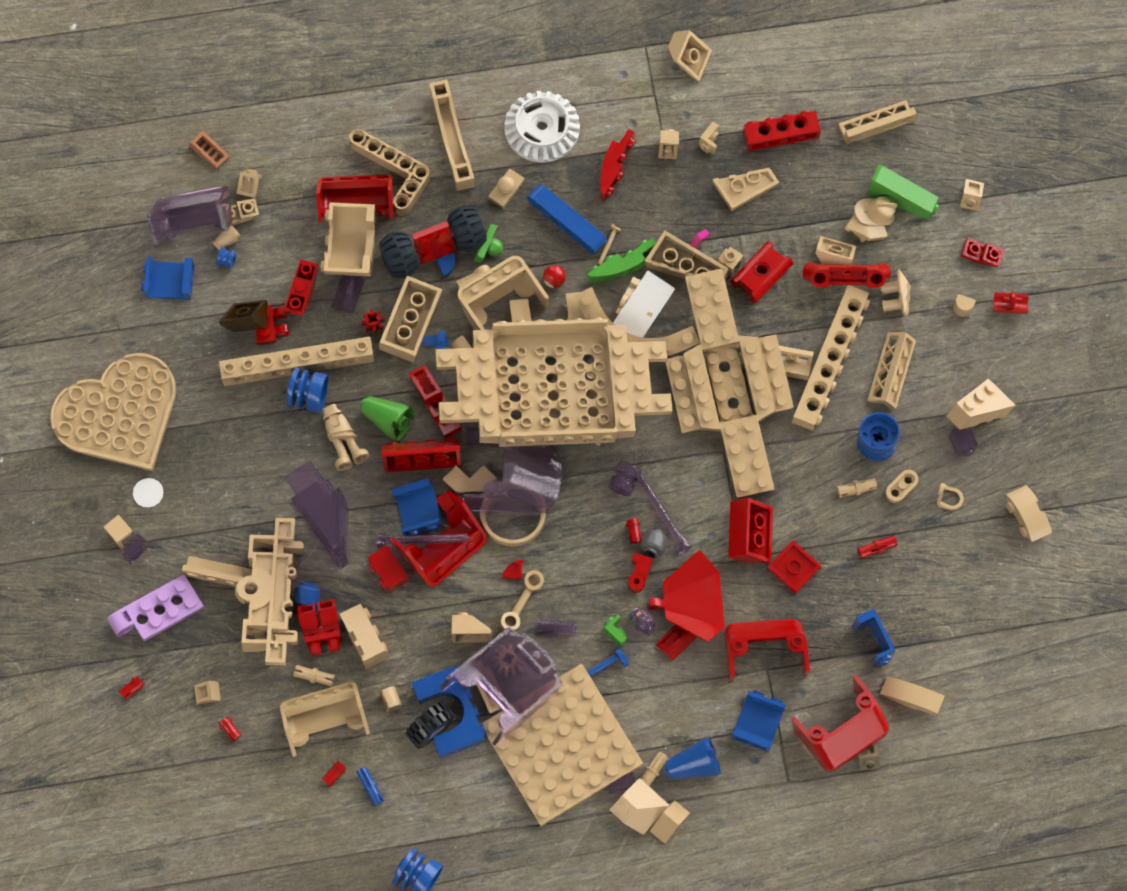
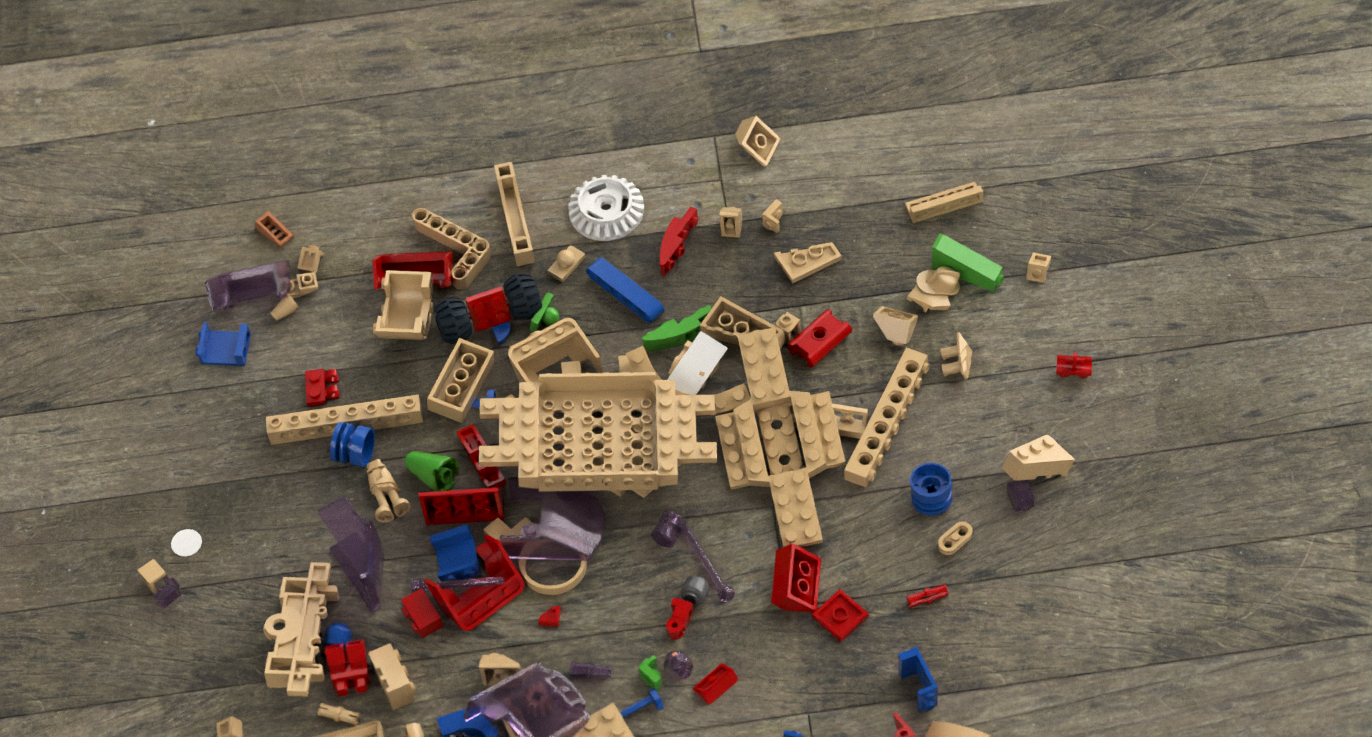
camera: 10 degrees right, 15 degrees down
(120, 414) = (166, 469): tan plate -> none
(126, 618) = (153, 656): lavender hinge -> none
(130, 688) = (153, 723): red pin -> none
(216, 572) = (244, 615): tan fence -> none
(226, 258) = (282, 326): blue wheel -> none
(246, 316) = (296, 379): dark brown slope -> none
(302, 288) = (355, 351): red slope -> none
(347, 293) = (401, 358): slope -> none
(374, 326) = (423, 383): red gear -> none
(533, 581) = (569, 627): tan piece -> none
(554, 276) = (608, 342): red piece -> none
(614, 229) = (673, 300): tan piece -> none
(634, 530) = (675, 578): red pin -> none
(693, 598) = (733, 641): red panel -> none
(703, 235) = (758, 305): dark pink tile -> none
(740, 634) = (781, 678): red windscreen -> none
(774, 137) = (846, 209): red brick -> none
(824, 275) = (905, 337): red plate -> none
(857, 487) = (908, 540): tan pin -> none
(896, 369) = (953, 428): tan fence -> none
(945, 506) = (995, 540): tan piece -> none
(963, 305) = (1026, 368): tan brick -> none
(980, 253) = (1047, 322): red slope -> none
(1025, 508) = (1082, 558): tan brick -> none

